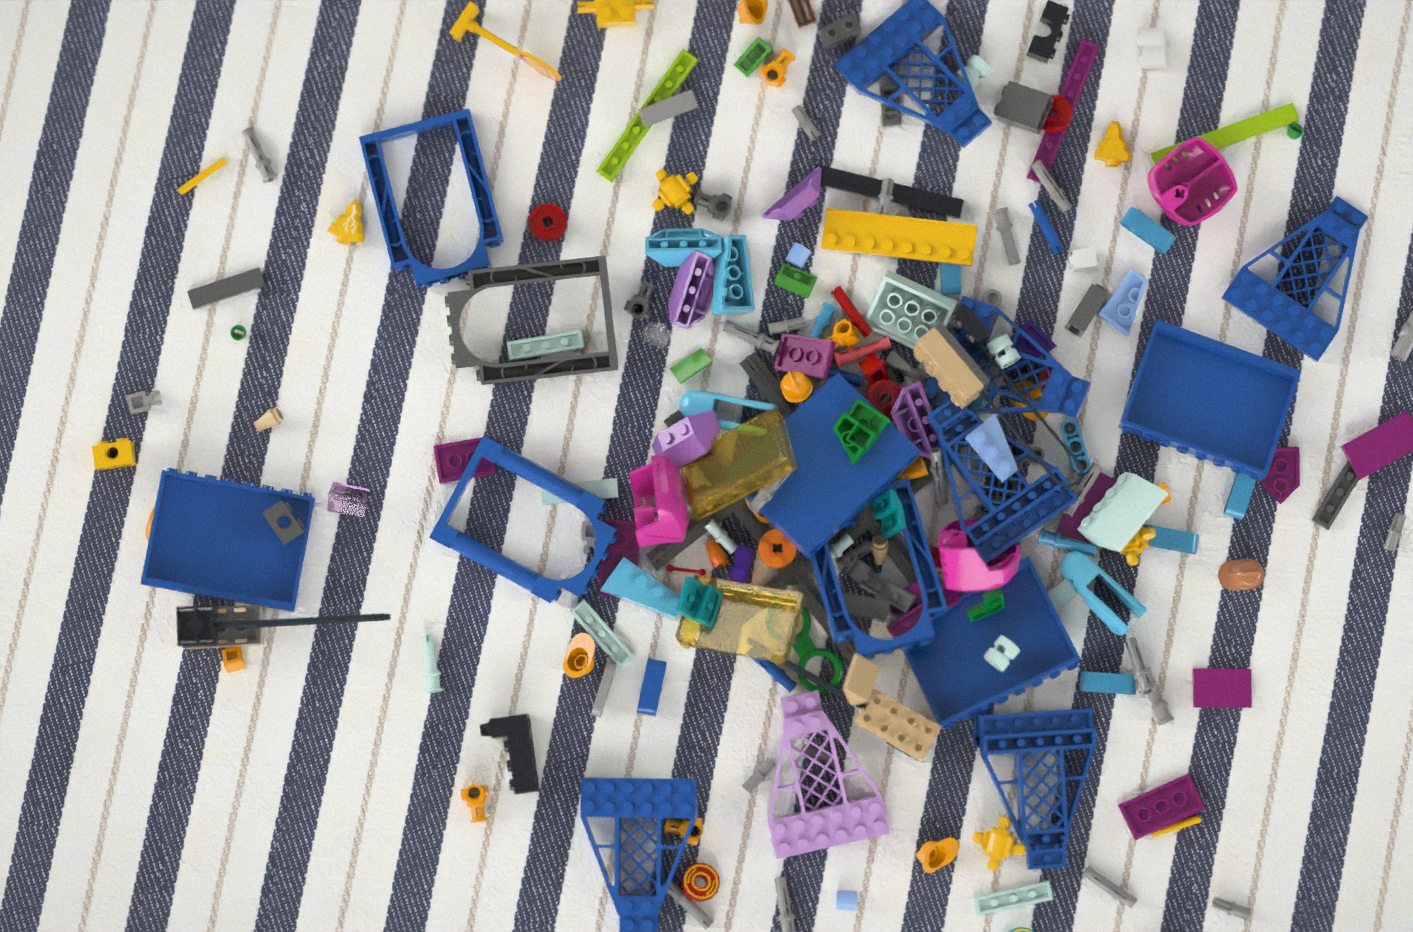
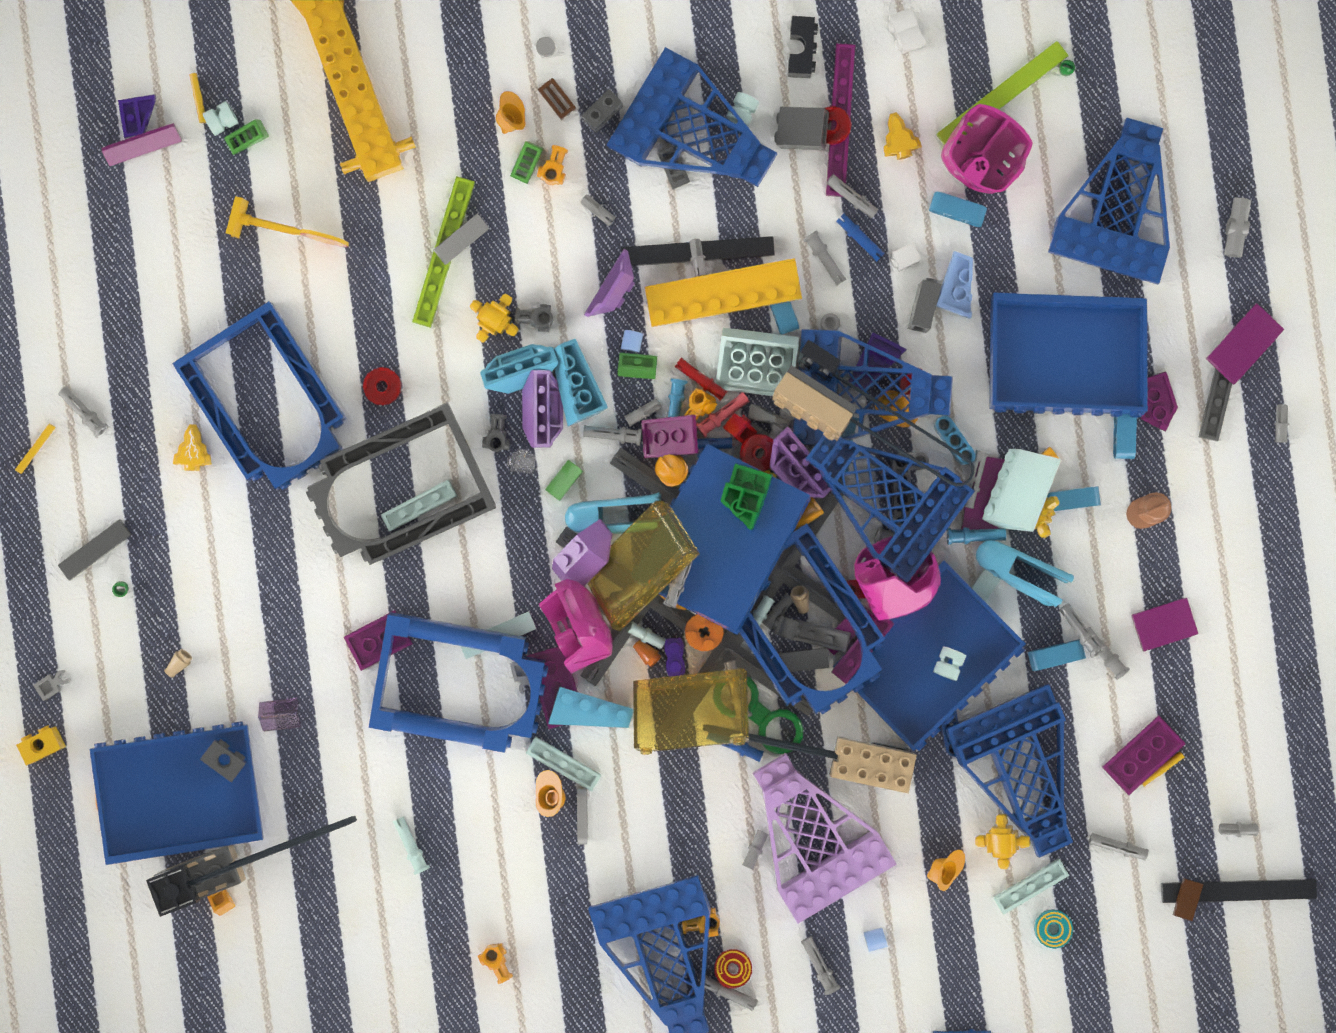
camera: 25 degrees left, 5 degrees up
(520, 749) = (521, 900): black hinge -> none
(651, 687) = (627, 799): blue beam -> none
(670, 568) = (638, 674): red hinge -> none
(699, 602) = (646, 706): teal slope -> none
(860, 680) = (825, 735): tan slope -> none
(890, 511) = (799, 560): teal slope -> none
(936, 459) = (827, 495): light grey pin -> none
(992, 602) = (924, 618): green tile -> none
(993, 448) = (879, 469): light blue wing -> none
(1001, 345) = (856, 366): light aqua wheel -> none

